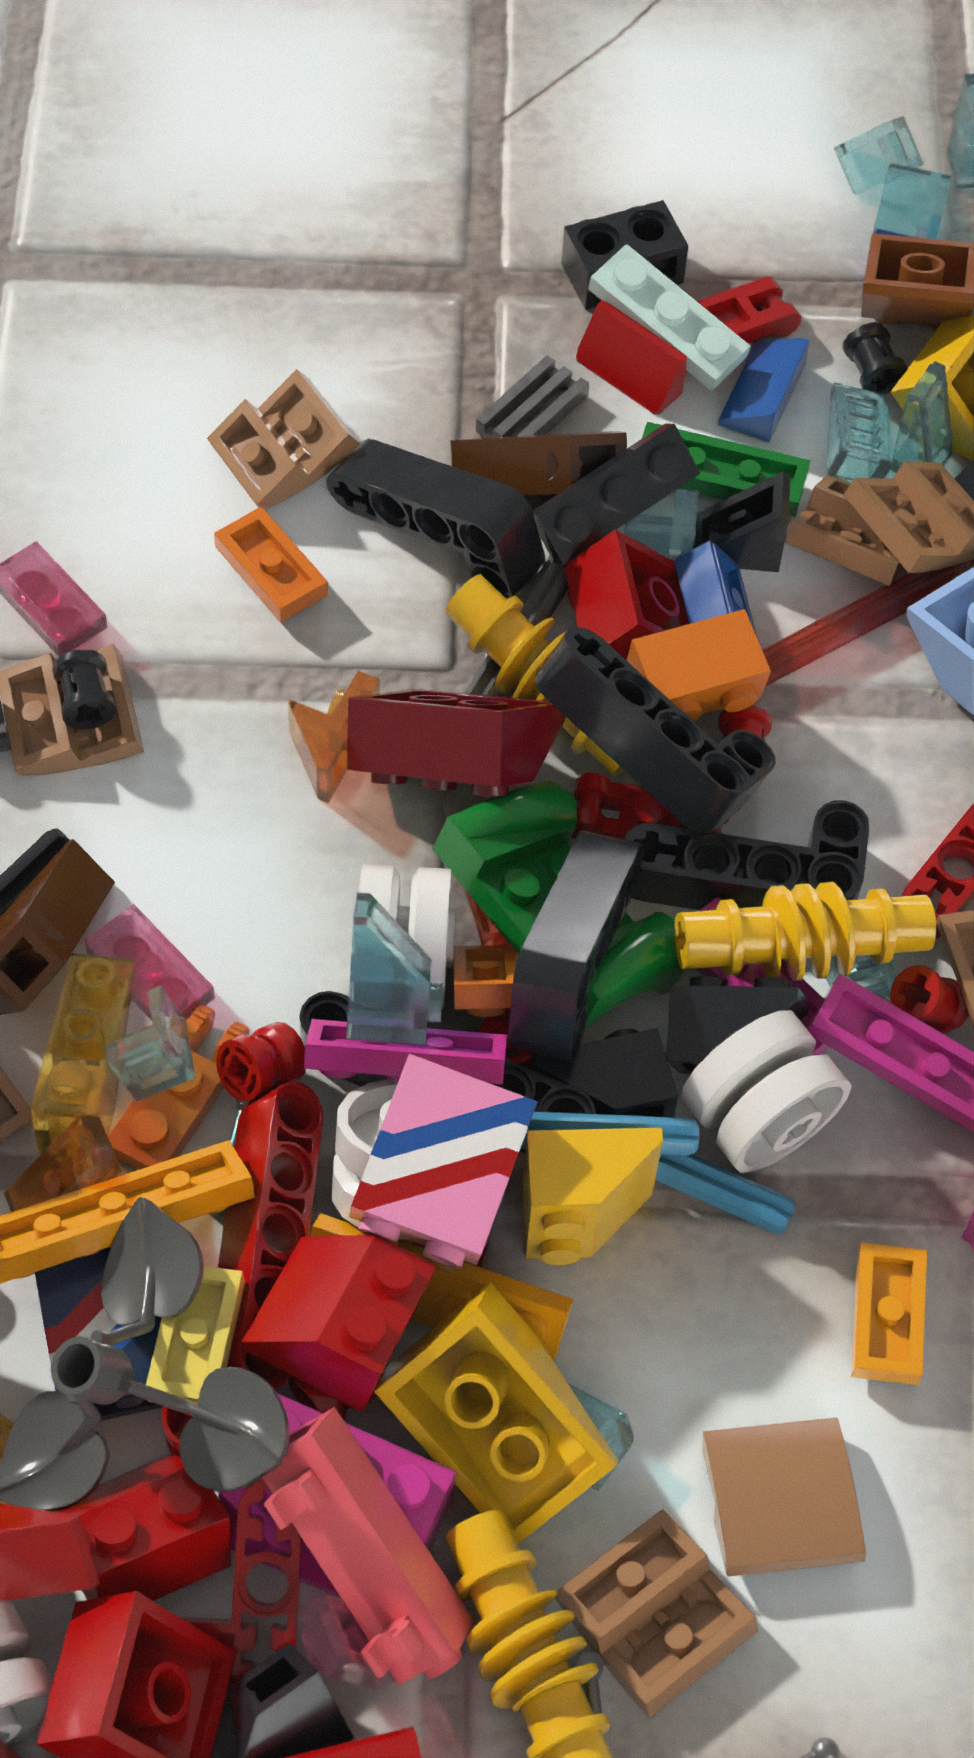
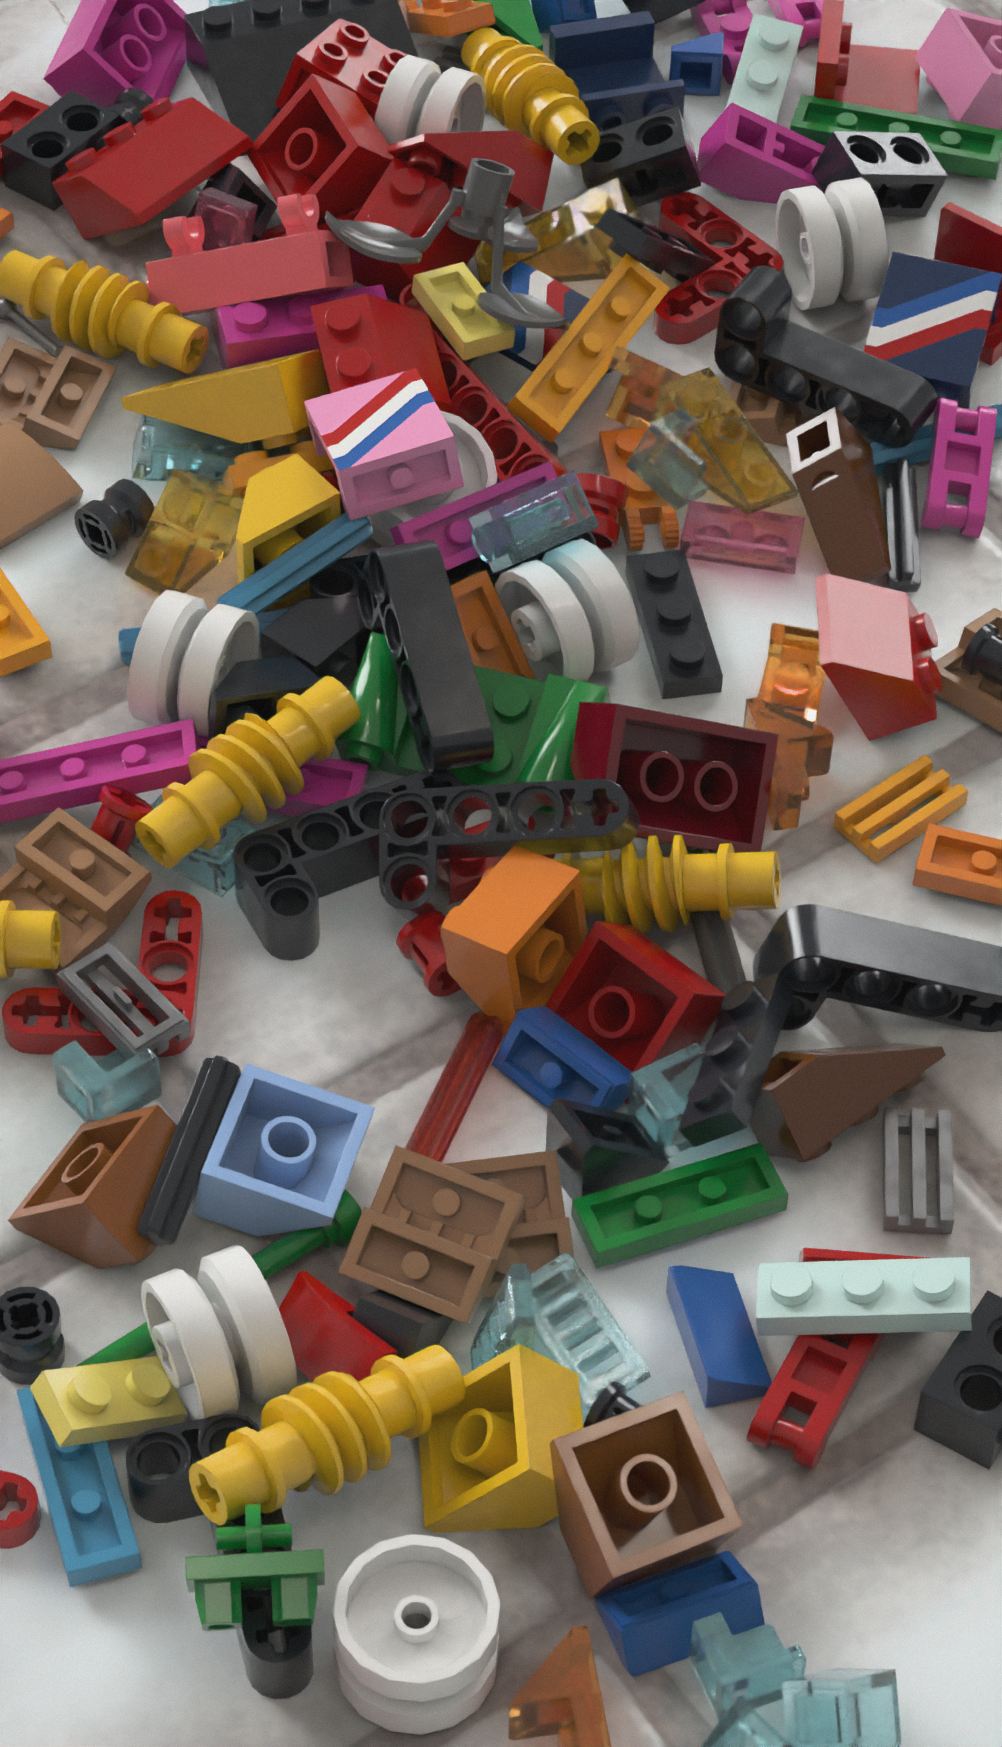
camera: 145 degrees right, 10 degrees down
(180, 741) = (877, 654): none -> slope
(226, 822) = (794, 671): none -> clear orange slope
(273, 648) = (892, 802): none -> light orange tile
(283, 935) = (673, 624): none -> black plate
(642, 1292) = (186, 533): none -> clear yellow slope
(706, 1360) = (114, 519): none -> black wheel

